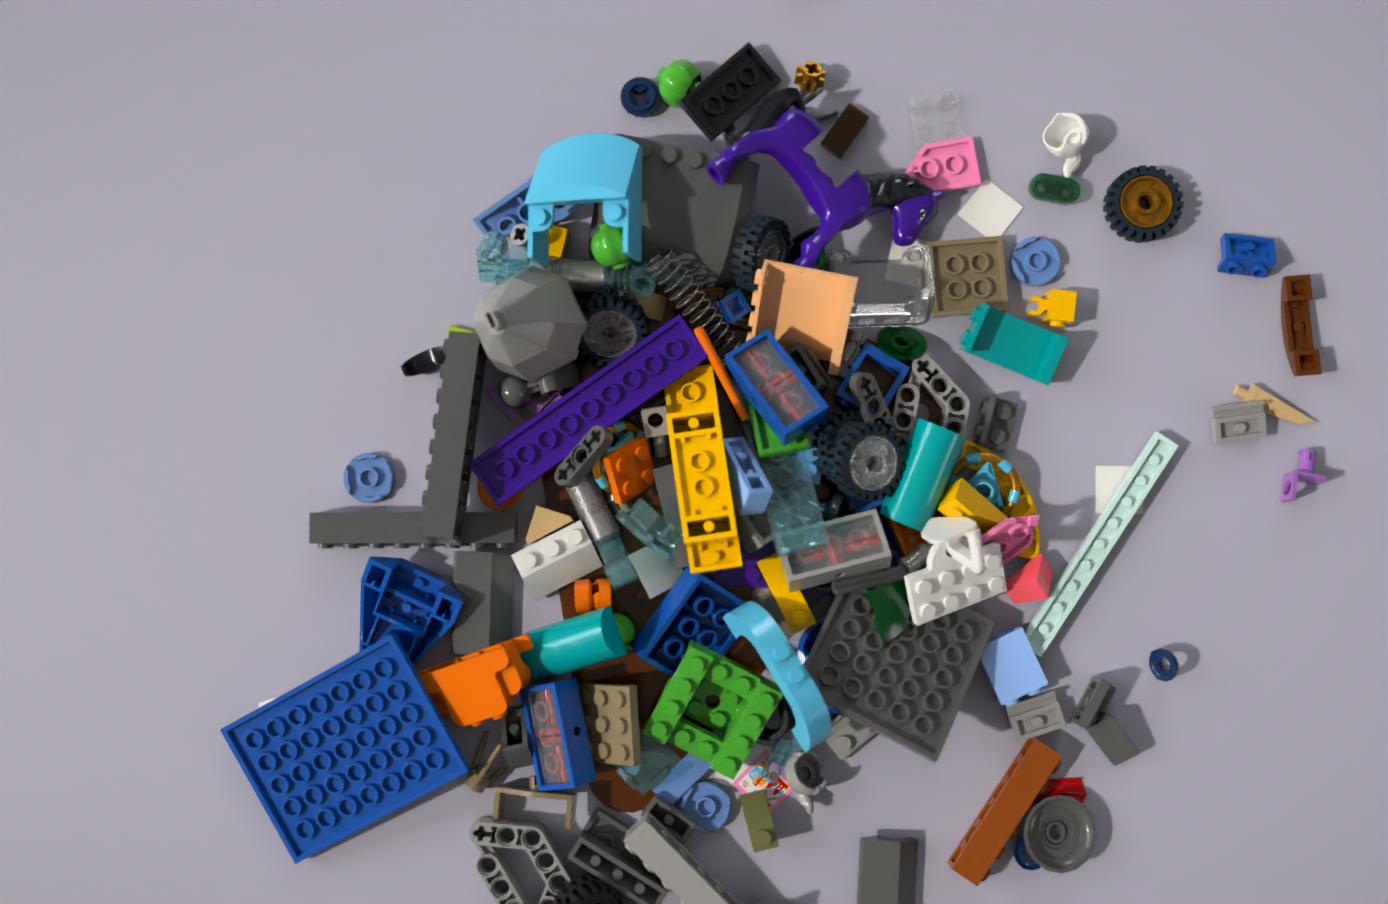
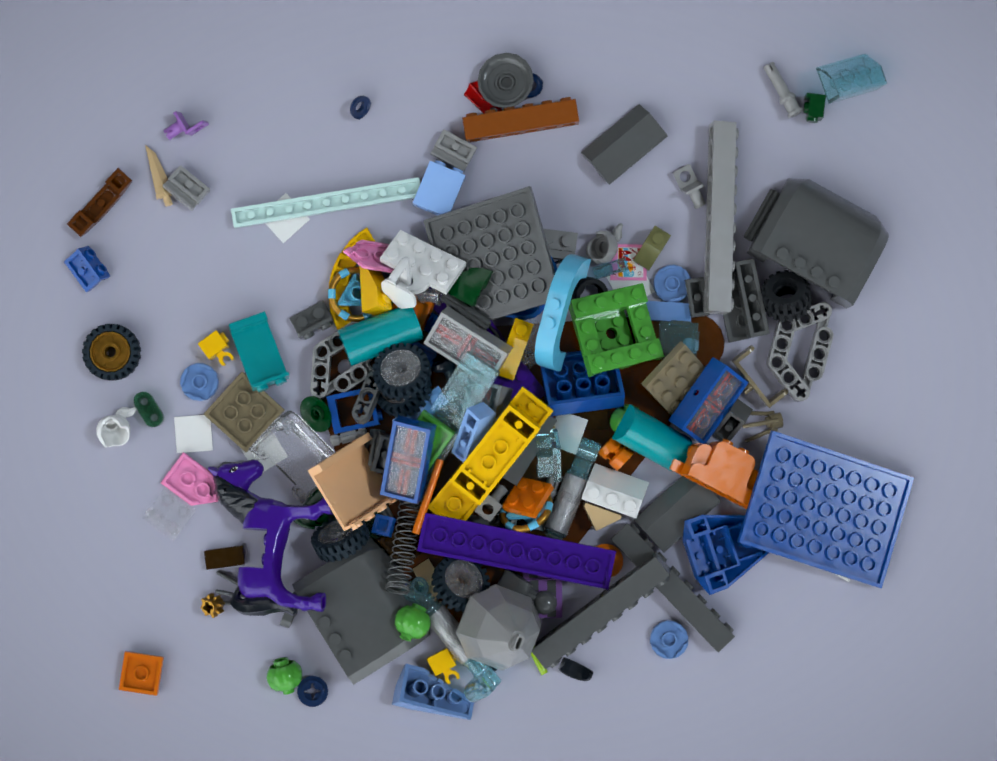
camera: 125 degrees left, 0 degrees up
(519, 235) = (453, 676): bush -> none
(571, 469) = (558, 529): dark grey beam -> none
(583, 172) = (387, 674): medium azure windscreen -> none
(729, 91) = (263, 642): black plate -> none
(1031, 581) = (382, 220): coral slope -> none
(1093, 702) = (417, 125): dark grey bracket -> none
(1112, 739) = (427, 98): dark grey slope -> none

